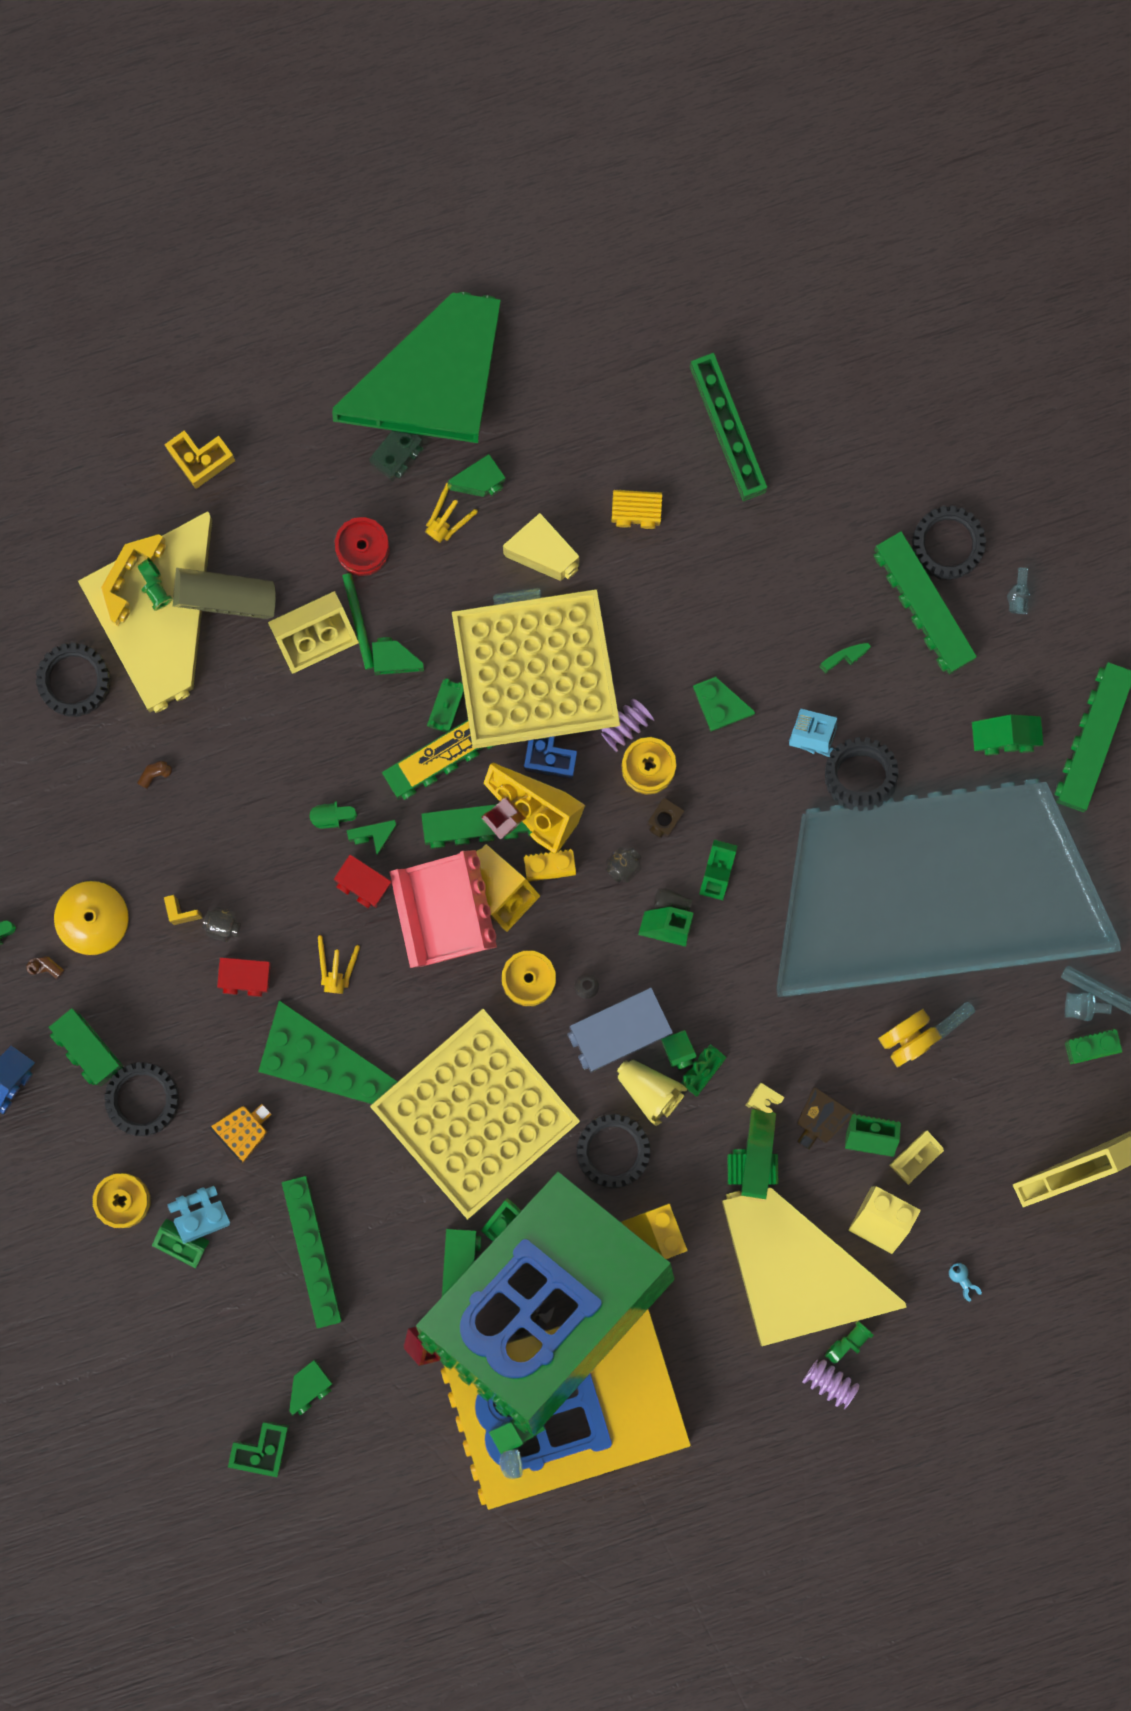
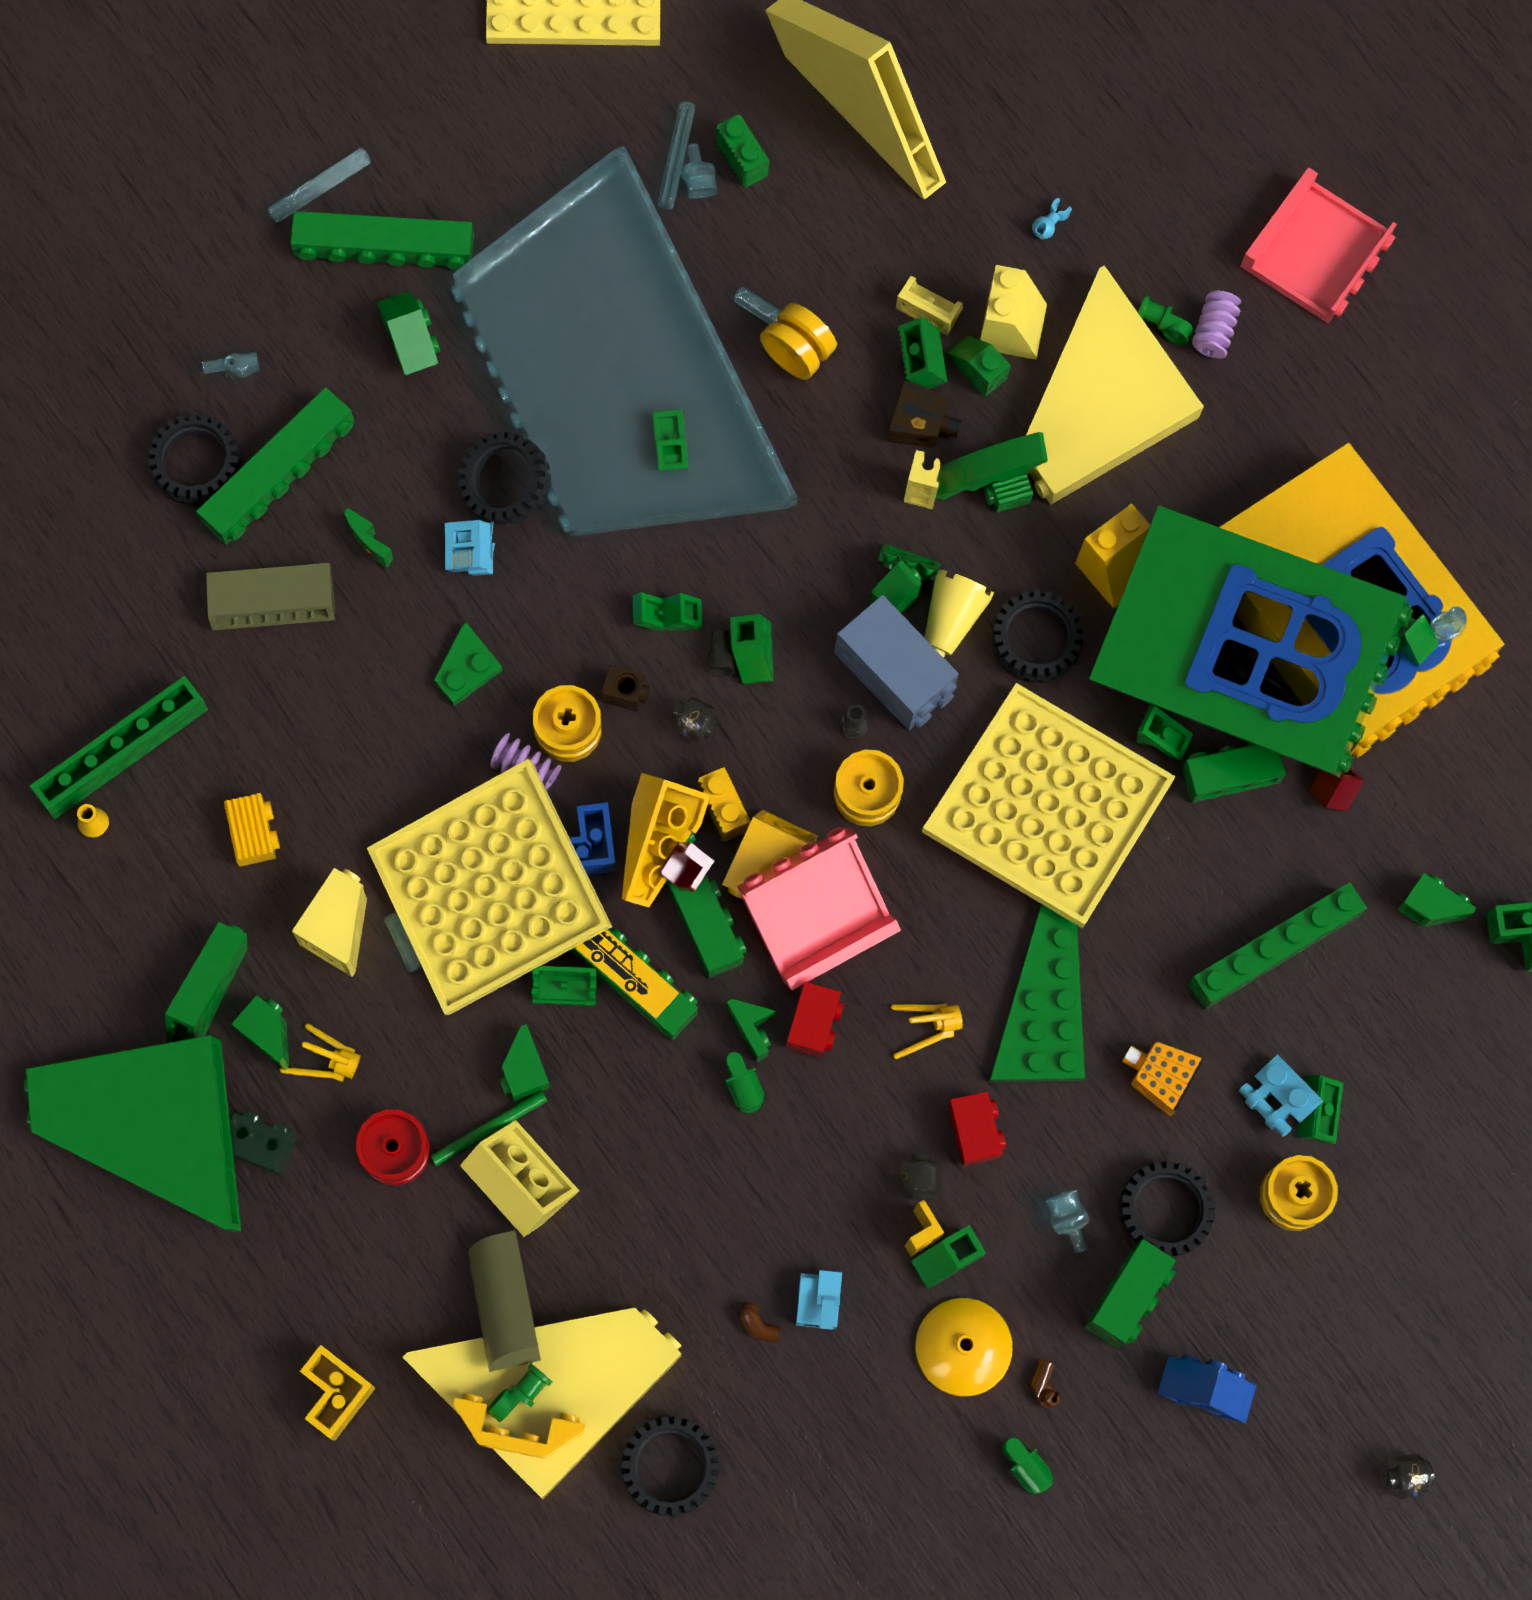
camera: 110 degrees left, 10 degrees down
(155, 821) = (819, 1300): none -> medium azure piece
(156, 925) = (948, 1257): none -> green slope
(159, 1024) = (1069, 1217): none -> clear light blue piece
(525, 444) = (206, 984): none -> green slope
(679, 399) = (96, 824): none -> yellow cone
(818, 571) = (270, 596): none -> olive brick
(855, 1180) = (980, 363): none -> green slope
(859, 914) = (670, 440): none -> green slope
(876, 1494) = (1317, 248): none -> coral panel

